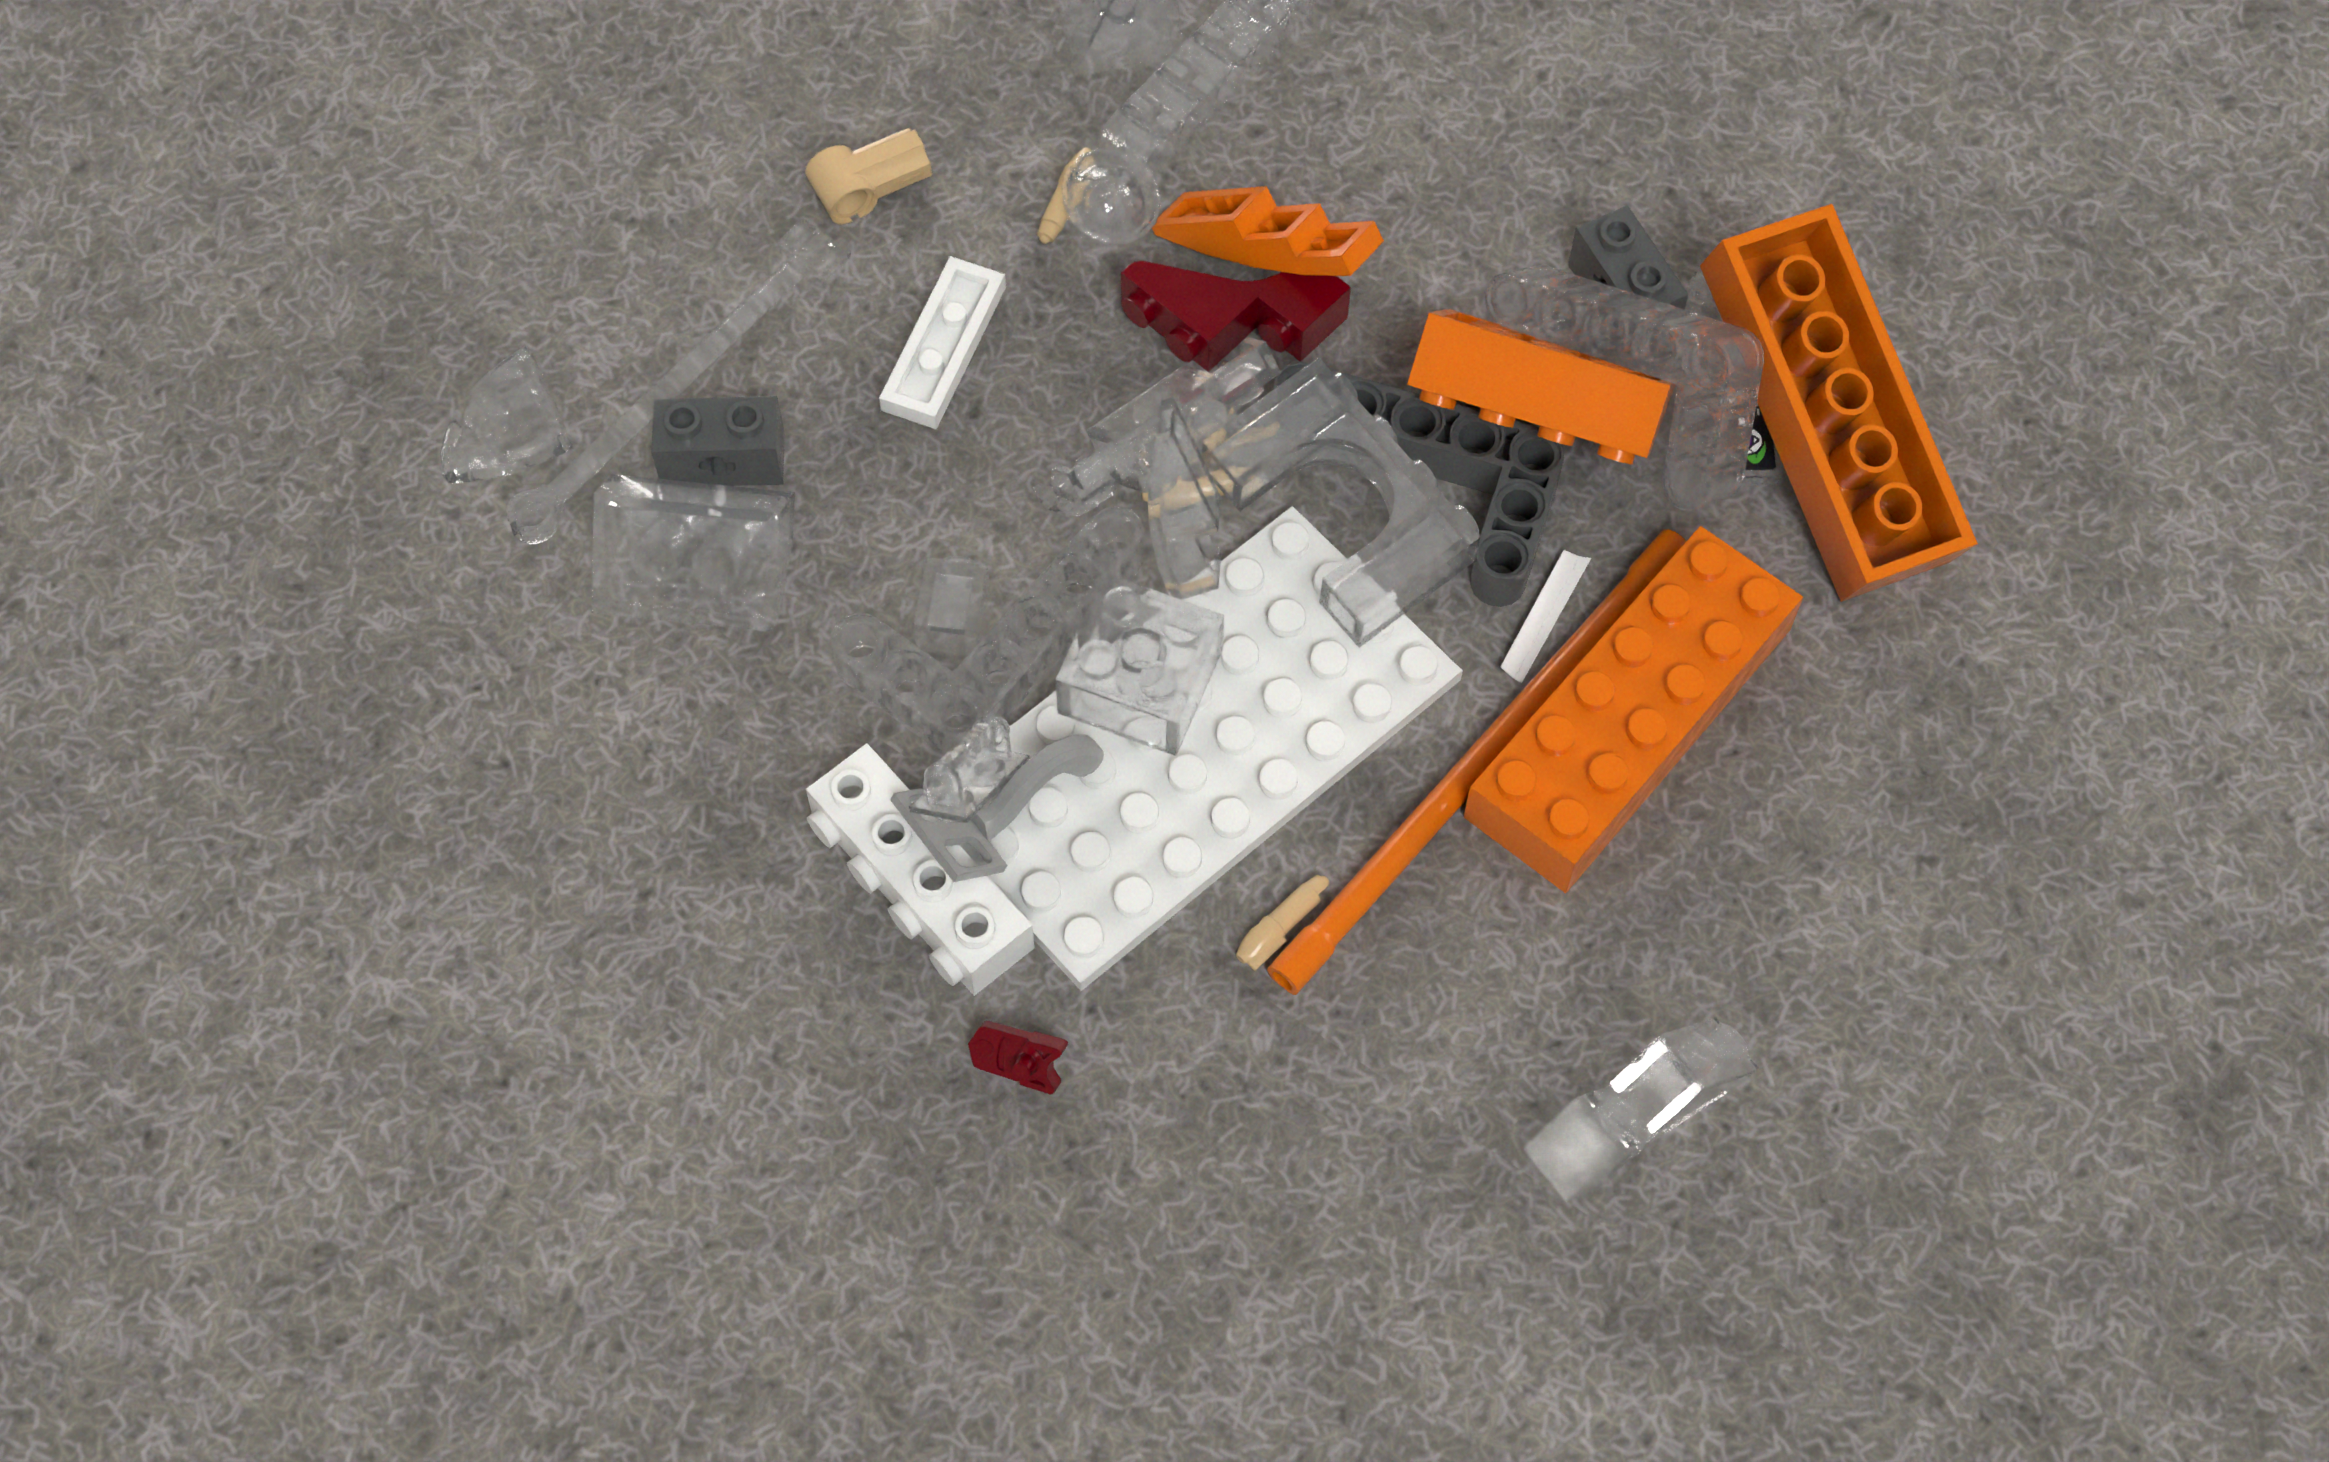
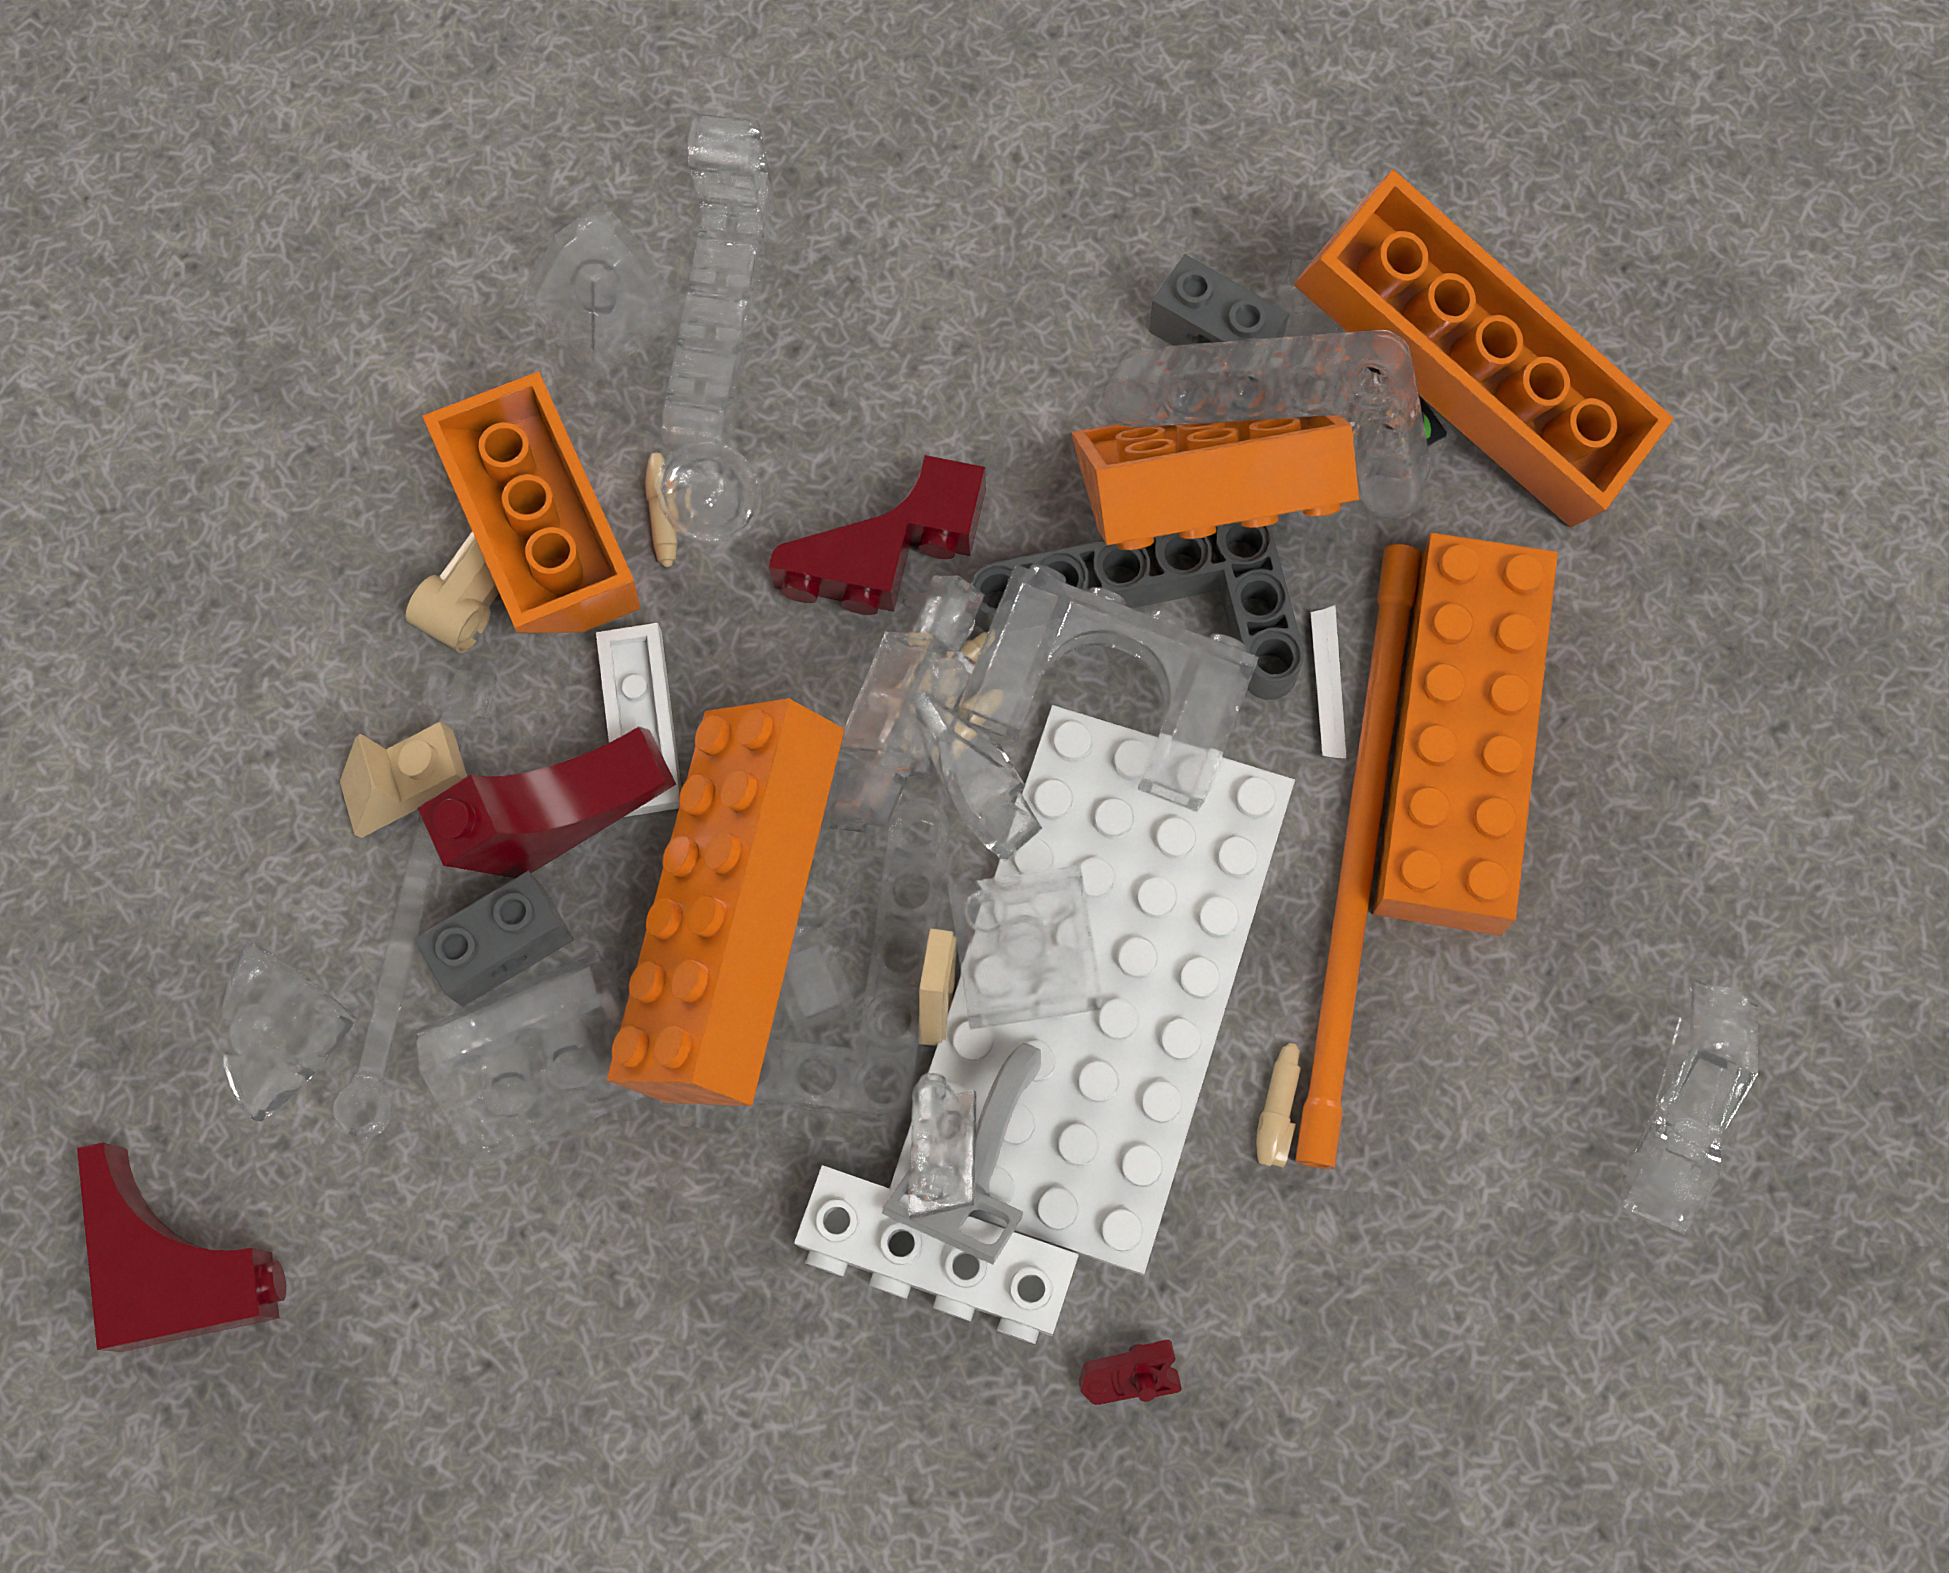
camera: 25 degrees left, 10 degrees up
(290, 556) = (152, 1281): none -> dark red arch
(722, 286) = (395, 781): none -> tan slope
(816, 361) = (540, 814): none -> dark red arch
(917, 502) = (727, 905): none -> orange brick
(957, 135) = (533, 509): none -> orange slope
(1044, 654) = (937, 986): none -> tan tile
(1254, 232) = (864, 458): orange slope -> none

